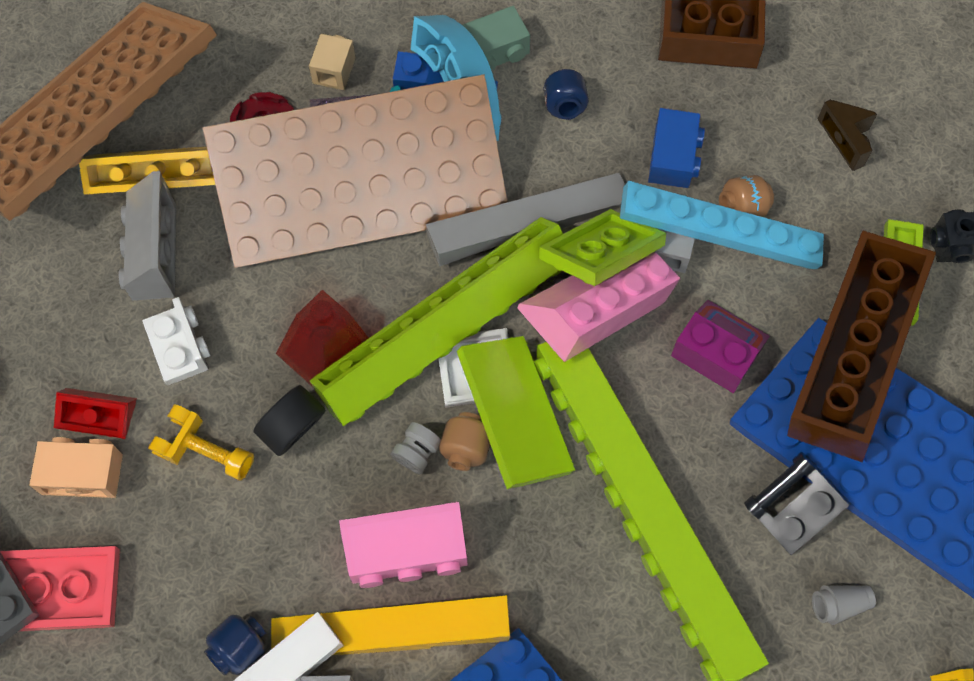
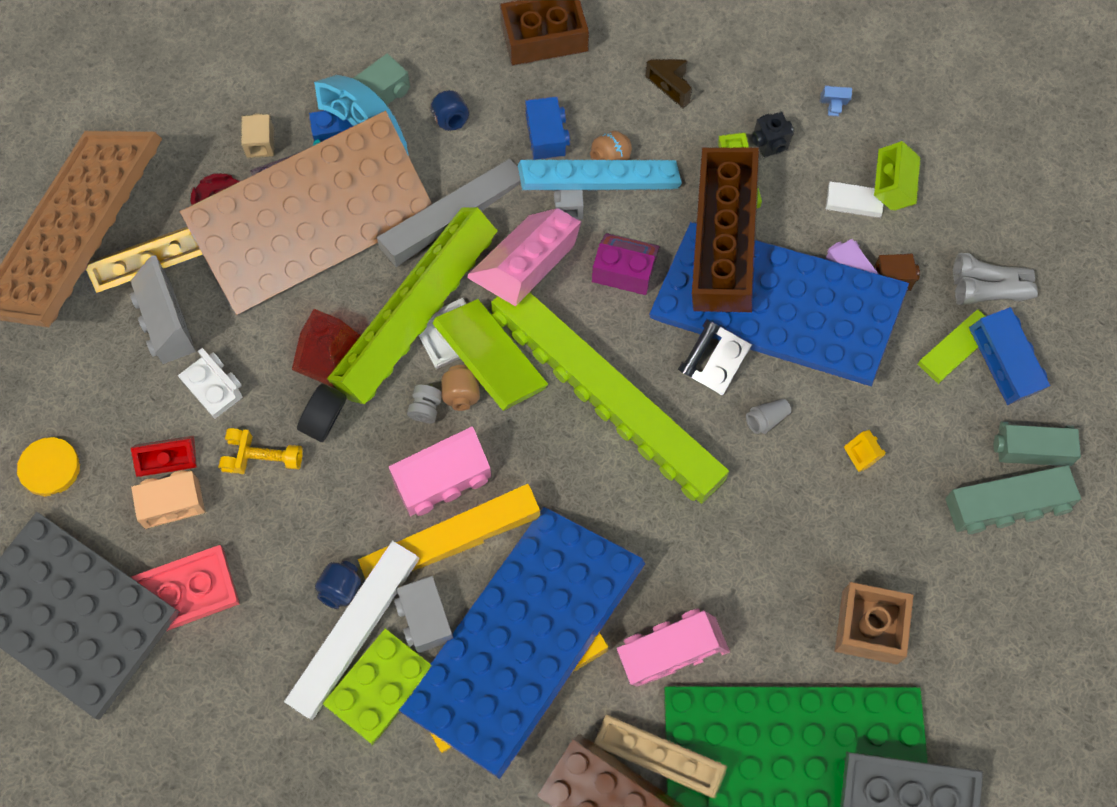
camera: 20 degrees left, 0 degrees up
(601, 247) = (515, 215): lime plate -> none

